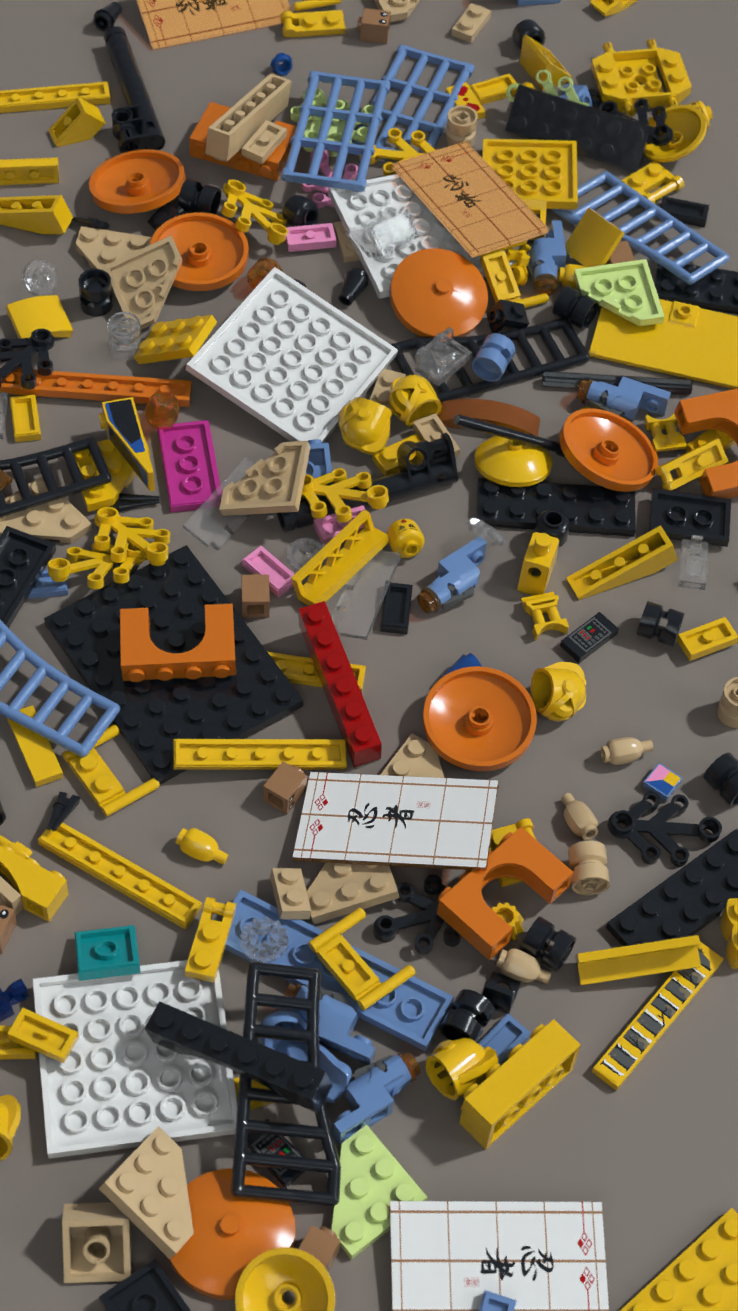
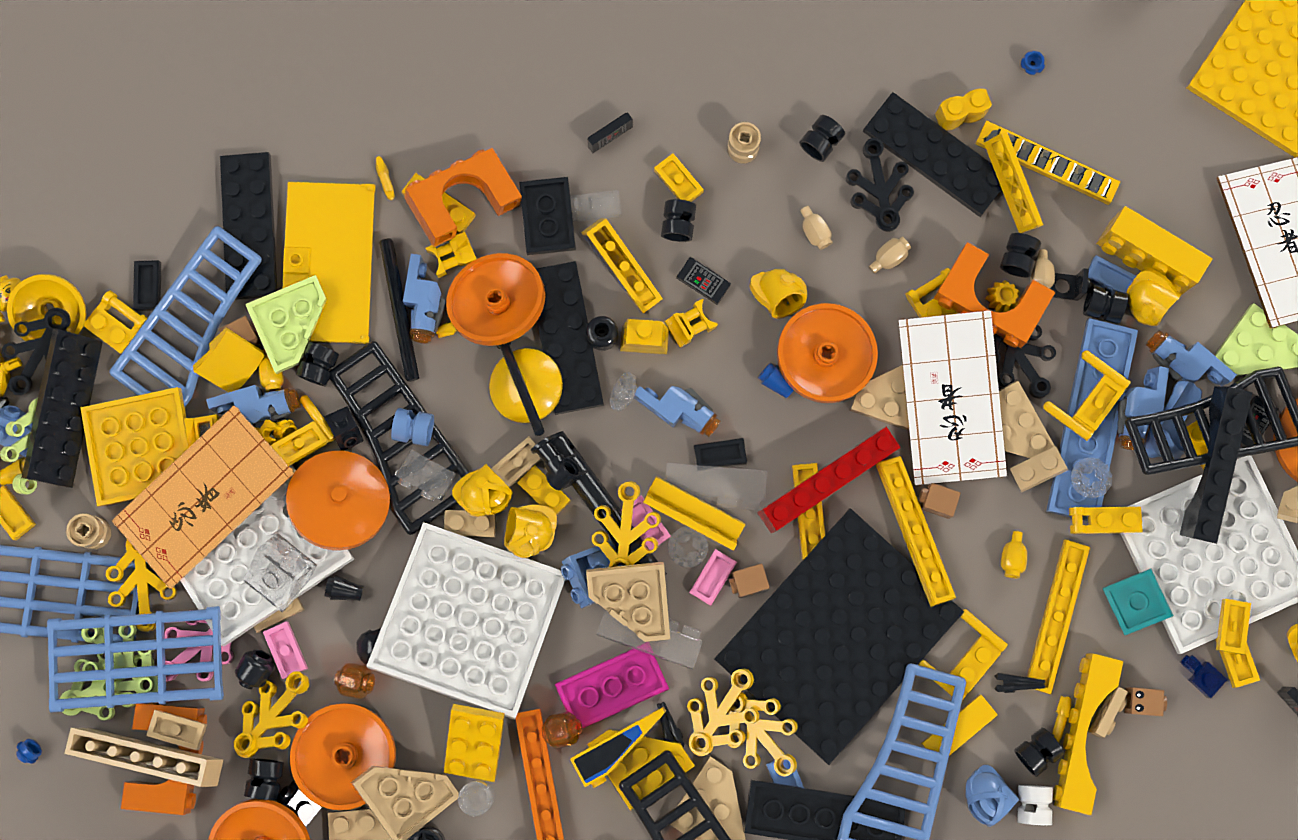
camera: 100 degrees left, 25 degrees up
(145, 661) = (861, 657): orange arch -> none
(405, 536) = (647, 462): yellow head -> none
(468, 98) = (40, 535): yellow tile -> none
(491, 412) = (477, 420): dark orange slope -> none
(589, 866) = (938, 237): tan wheel -> none
(662, 782) = (833, 195): tile -> none
(691, 464) = (490, 222): yellow plate -> none

